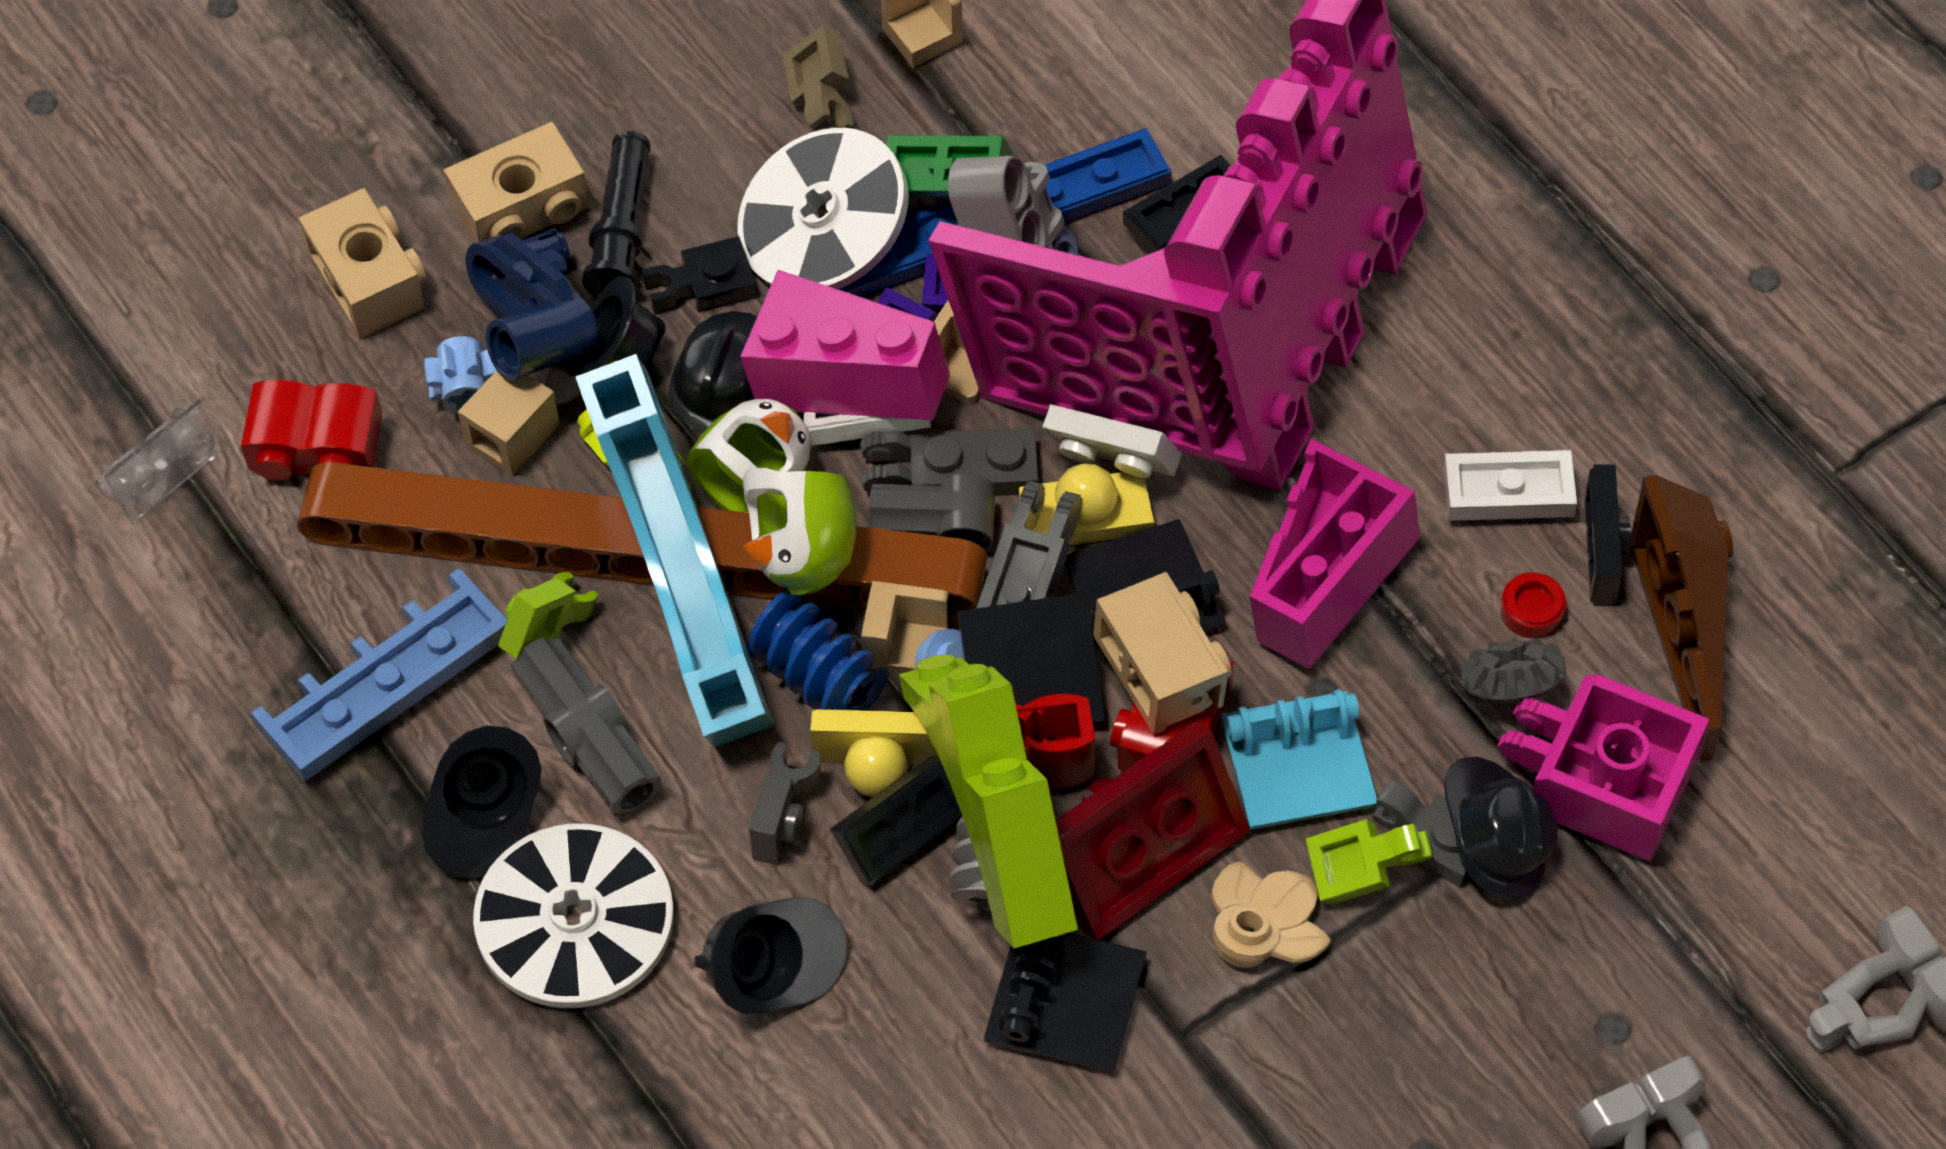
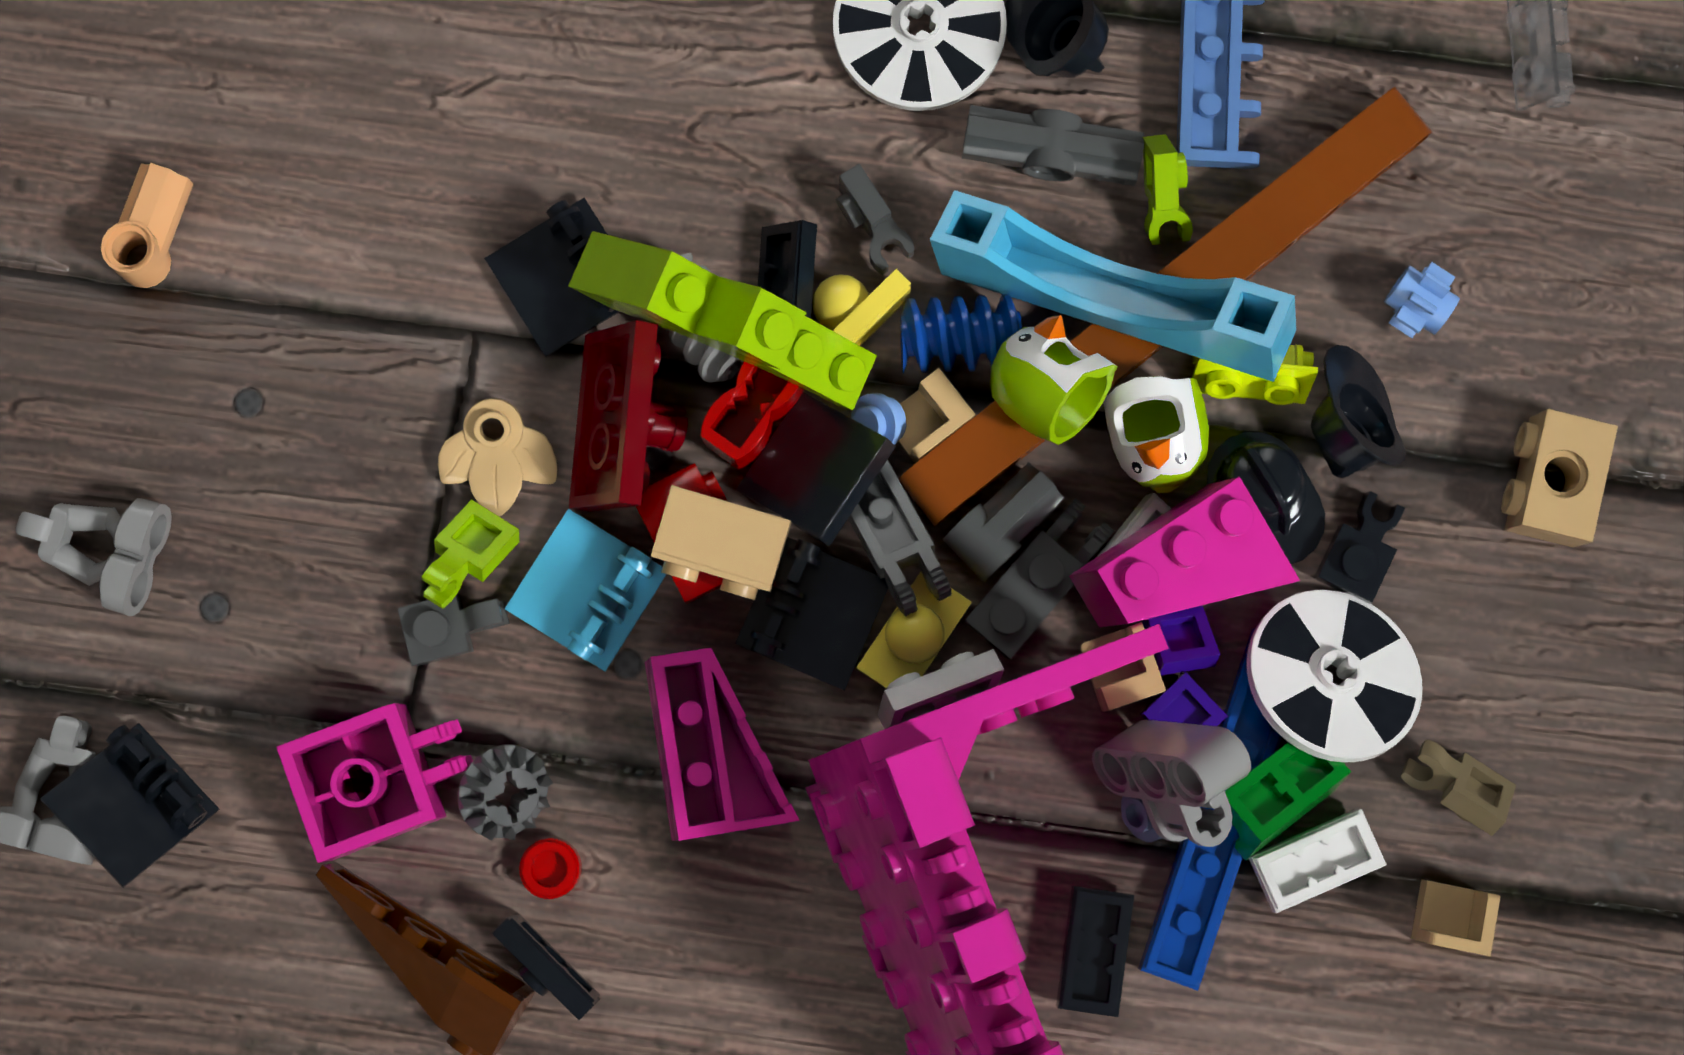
camera: 130 degrees right, 25 degrees up
(304, 425) = (1469, 161): red brick -> none
(371, 291) = (1625, 310): tan brick -> none
(508, 420) = (1354, 300): tan panel -> none
(536, 310) = (1392, 379): dark blue piece -> none
(616, 235) = (1452, 514): black pin -> none
(774, 954) = (763, 103): black piece -> none
(954, 113) = (1317, 860): none -> white plate
(1499, 827) = (409, 664): black piece -> none
(1509, 485) = (650, 944): white plate -> none
(1824, 922) = (130, 804): none -> black hinge

